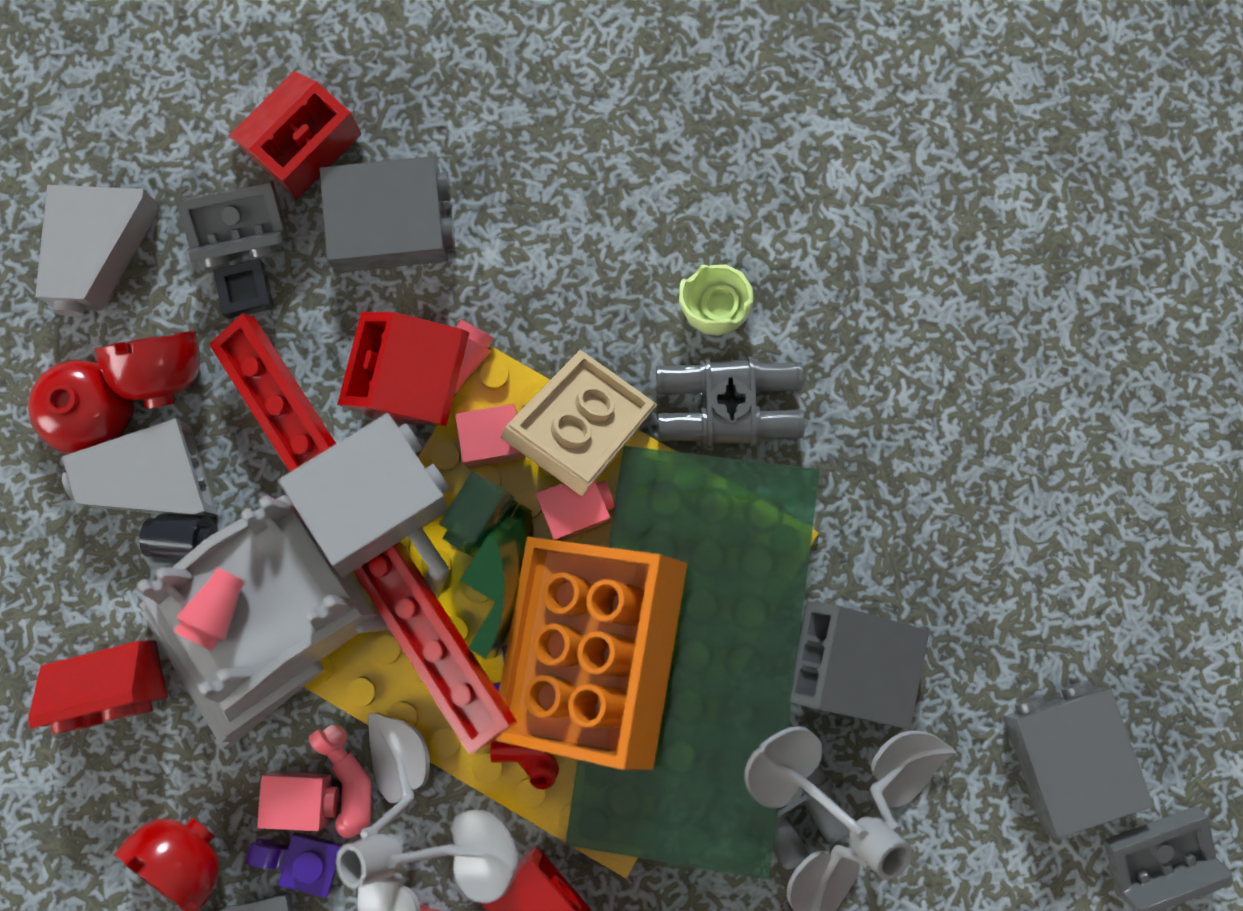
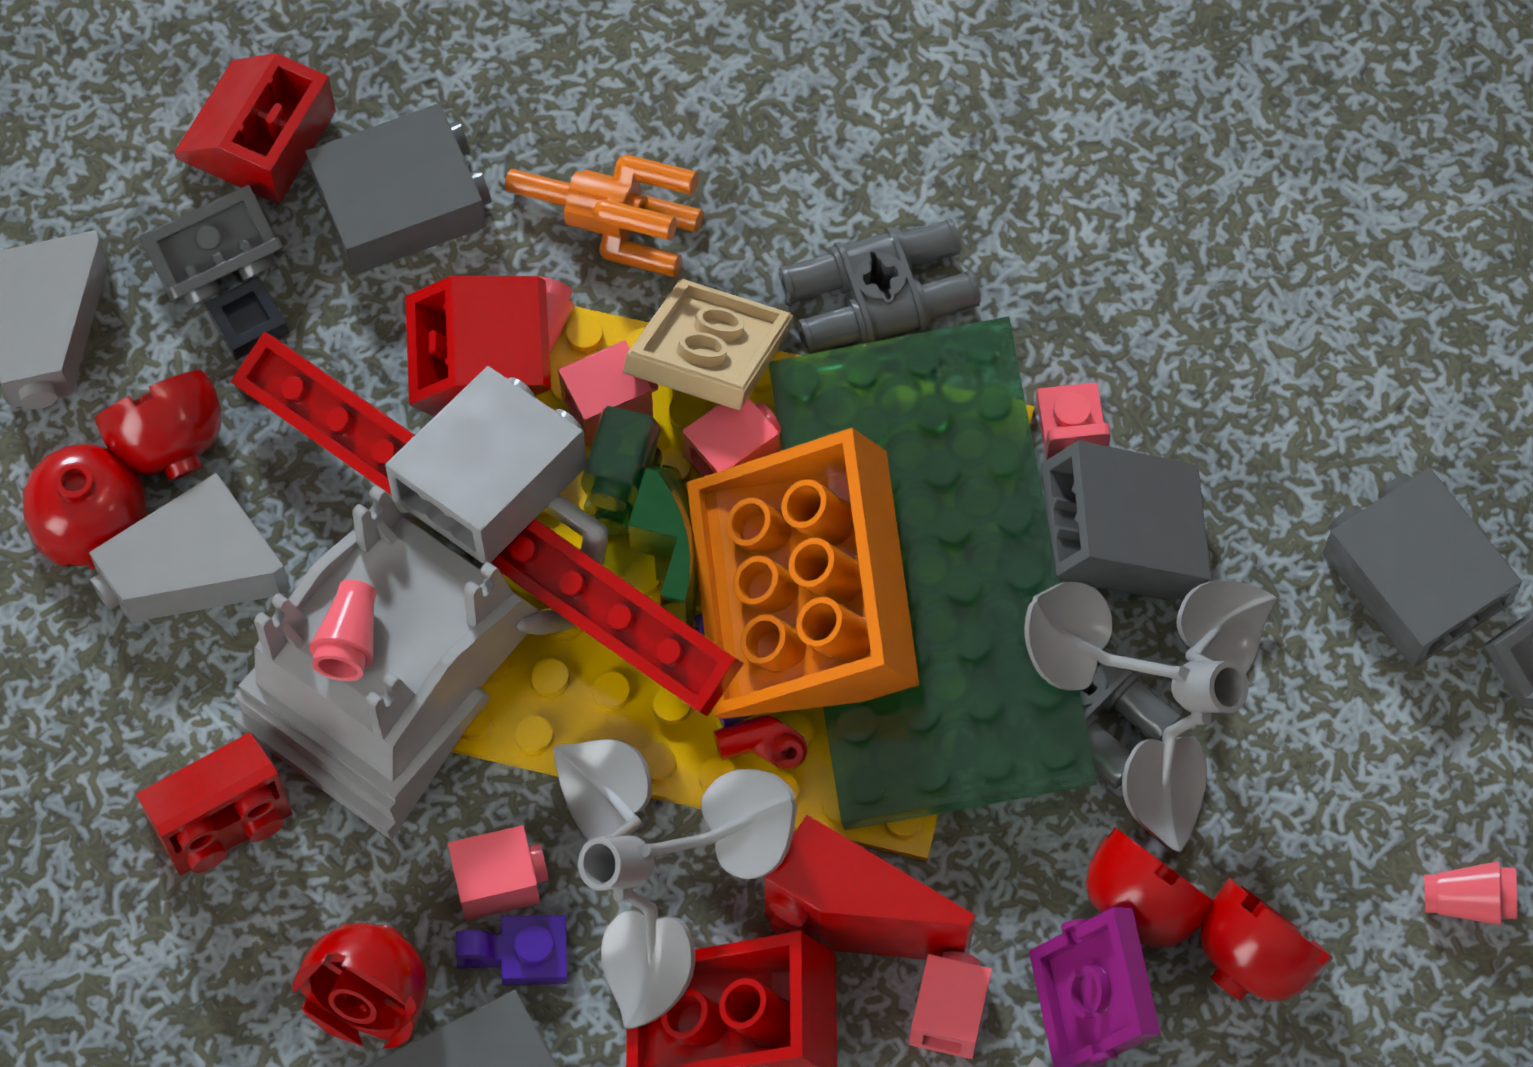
camera: 15 degrees left, 15 degrees down
(173, 536) = (235, 614): black brick -> none
(355, 781) = (559, 838): coral arm -> none
(548, 280) = (617, 208): none -> orange plant
(716, 299) = (827, 177): yellowish green hair -> none
(843, 558) = (1070, 415): none -> coral bracket

